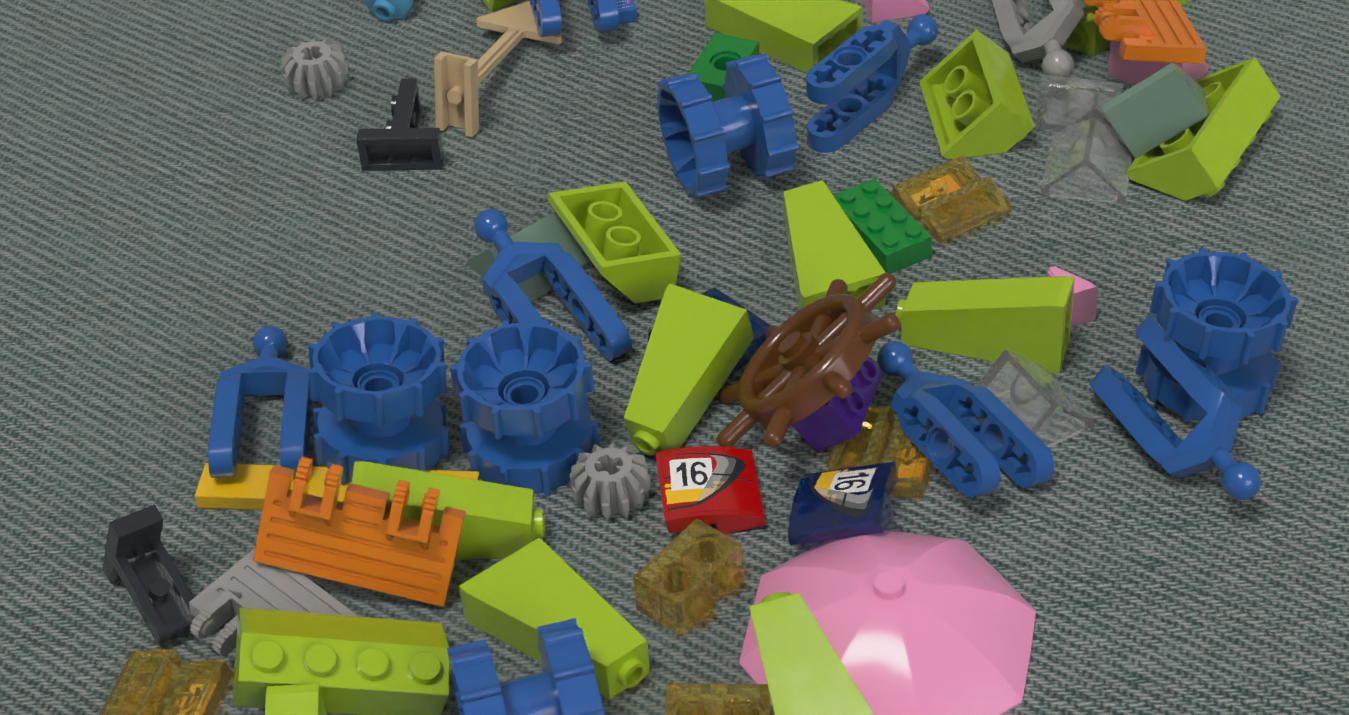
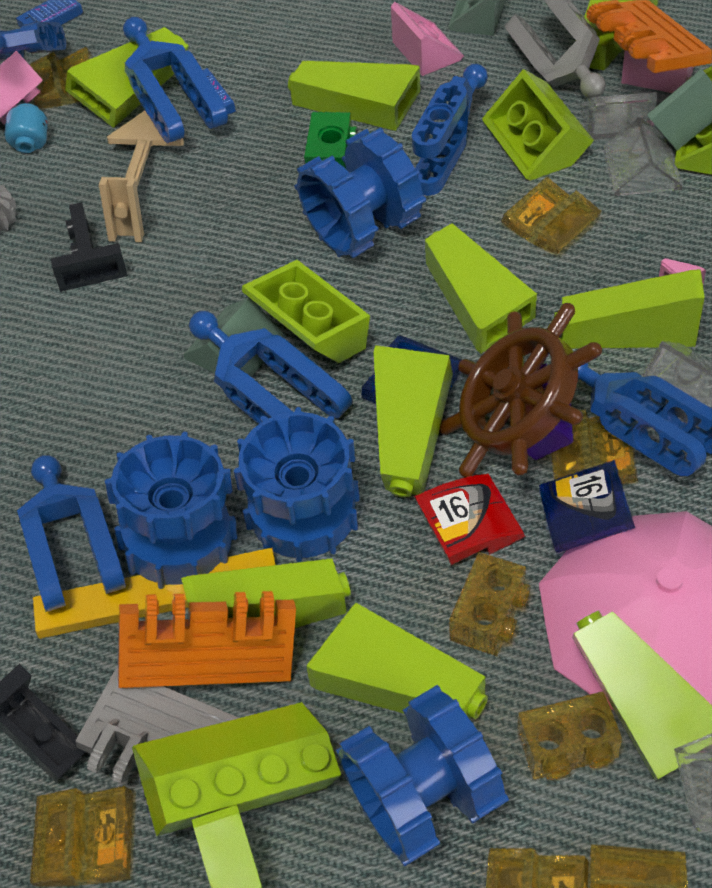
camera: 15 degrees left, 10 degrees up
(610, 481) = (386, 530): light grey gear -> none
(885, 226) = (511, 248): green piece -> none

